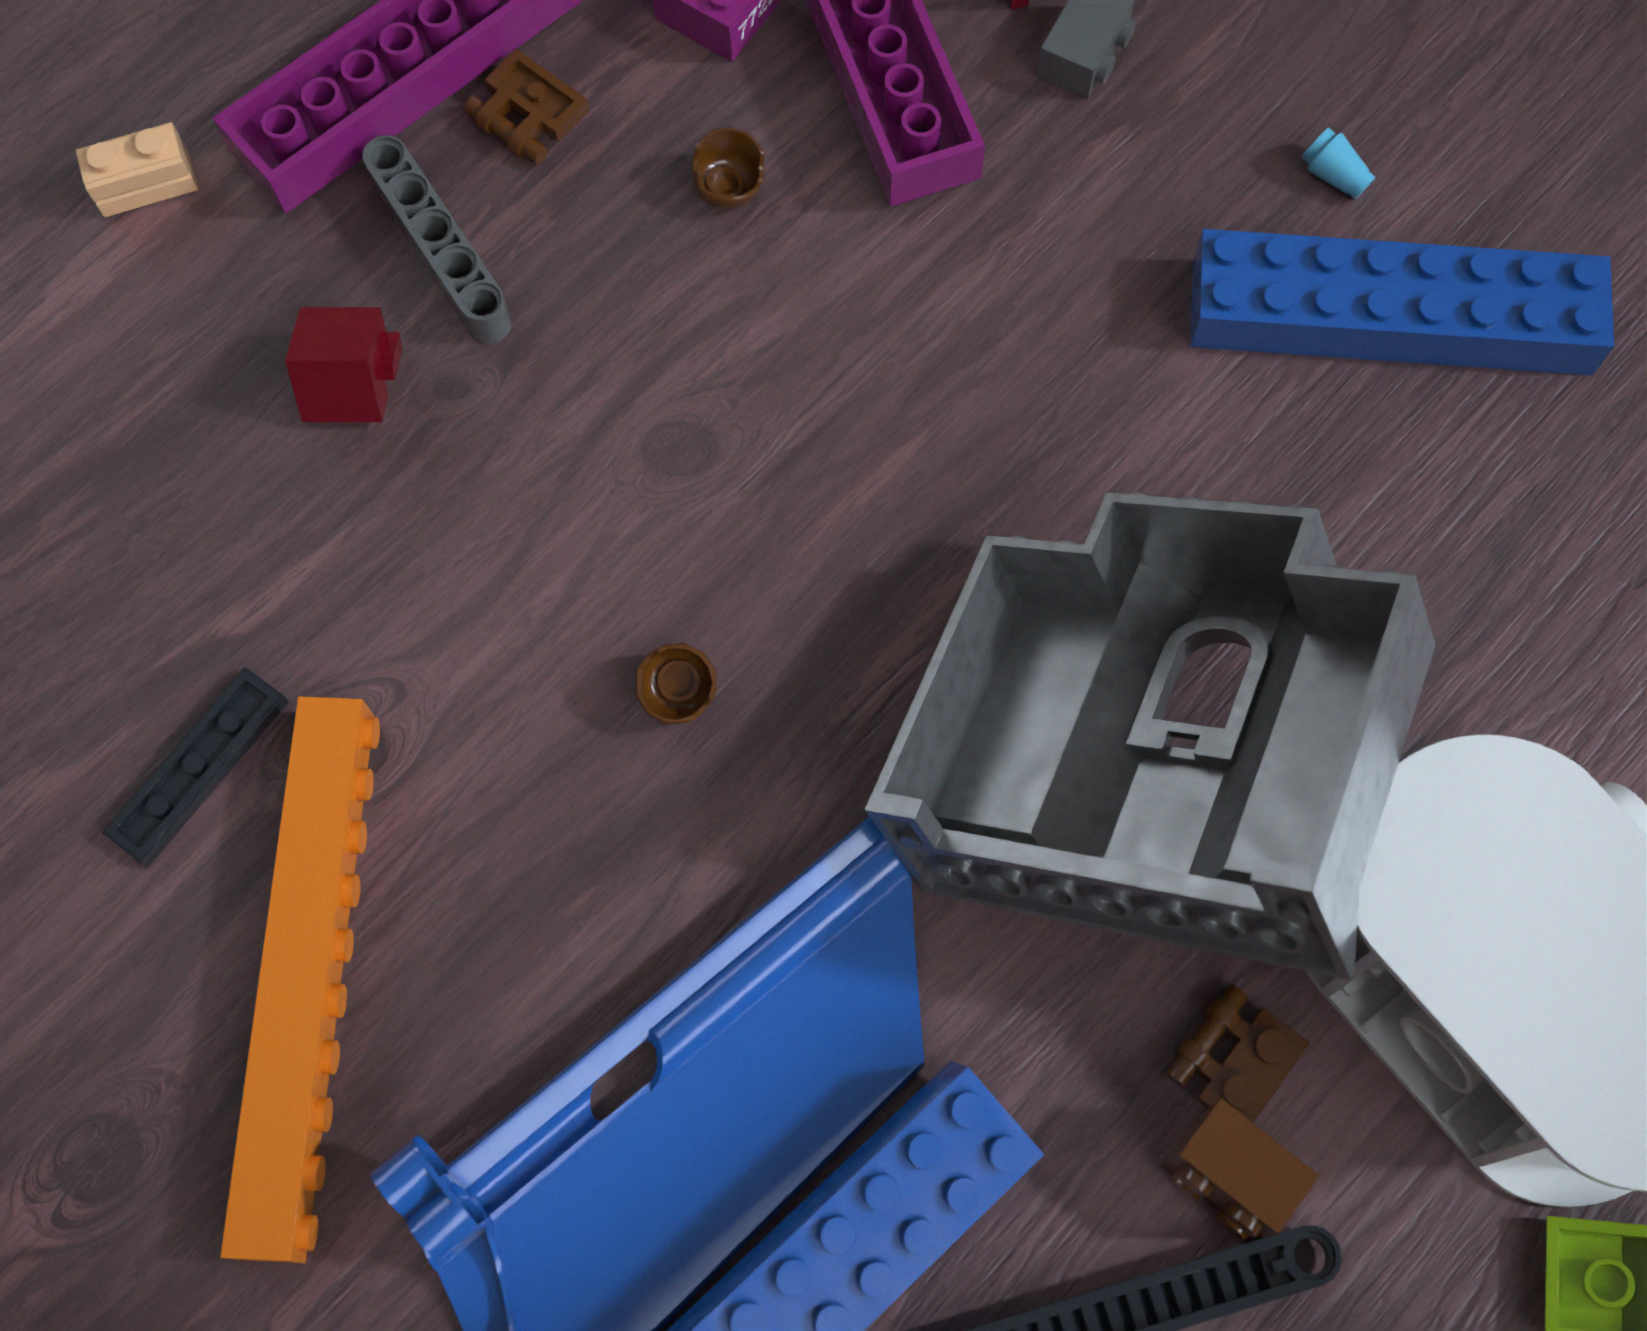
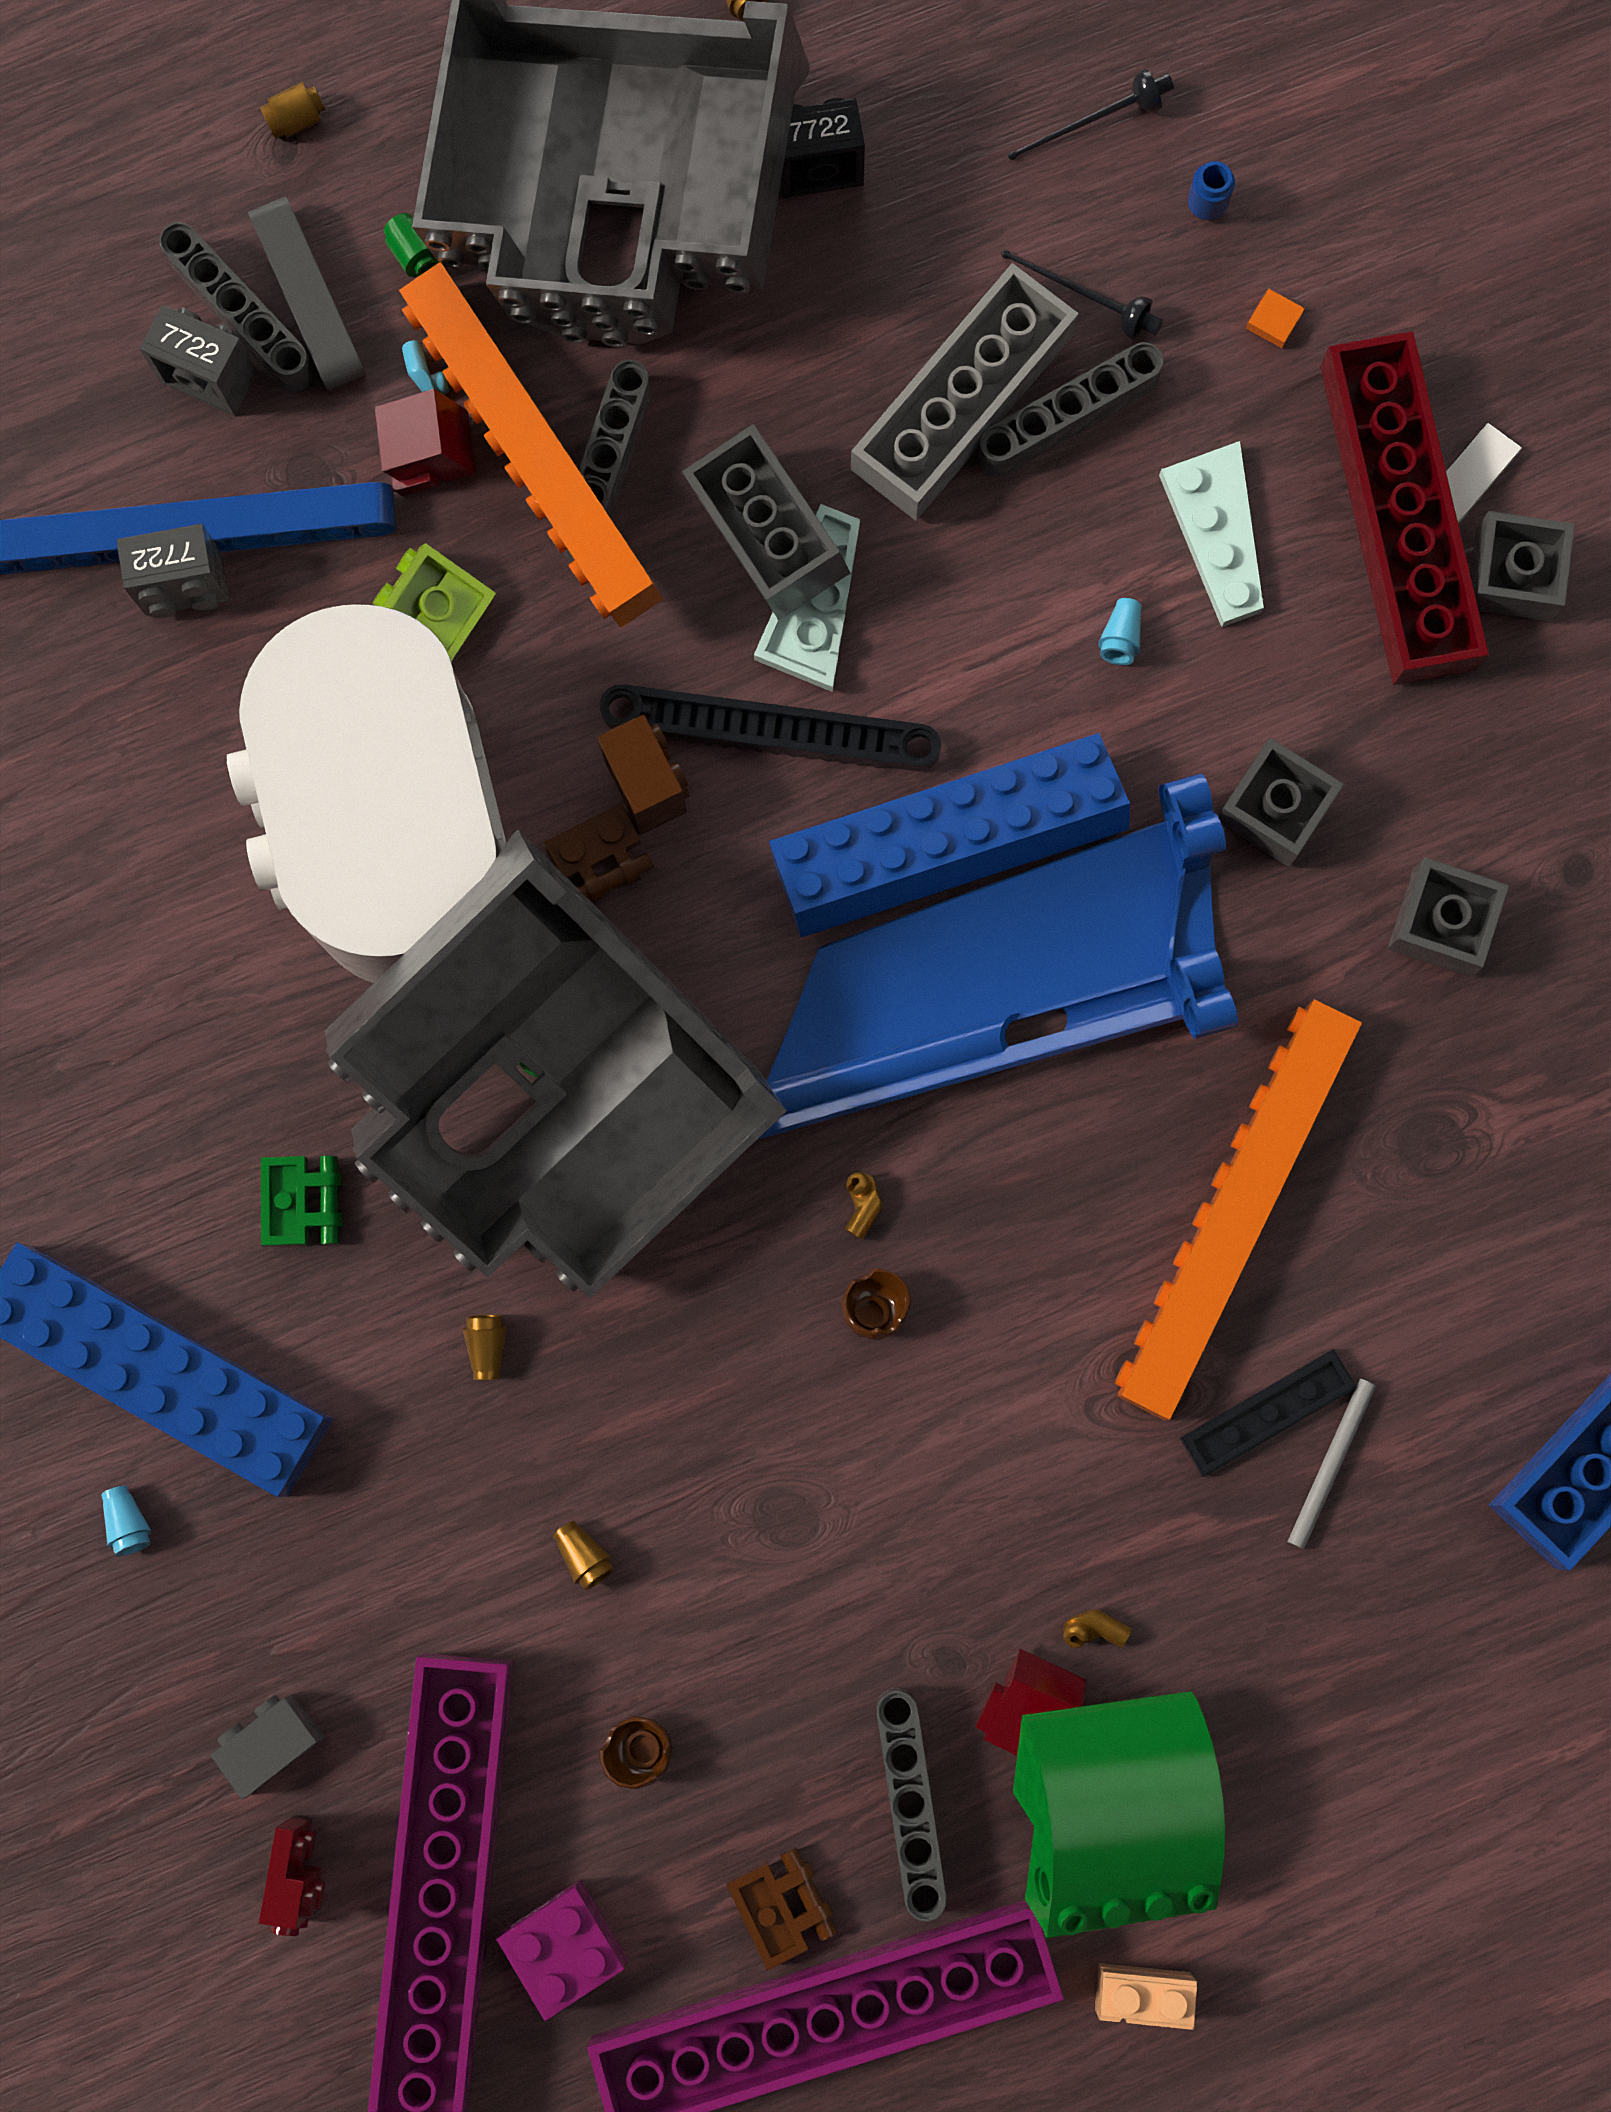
camera: 155 degrees left, 10 degrees up
(106, 744) = (1331, 1464): none -> light grey bar
(210, 291) = (1120, 1813): none -> green slope
(314, 476) = (1092, 1625): none -> pearl gold arm
(735, 795) = (866, 1202): none -> pearl gold arm
(869, 320) = (583, 1556): none -> pearl gold cone
(1075, 472) = (485, 1345): none -> pearl gold cone
(1364, 521) = (285, 1201): none -> green plate

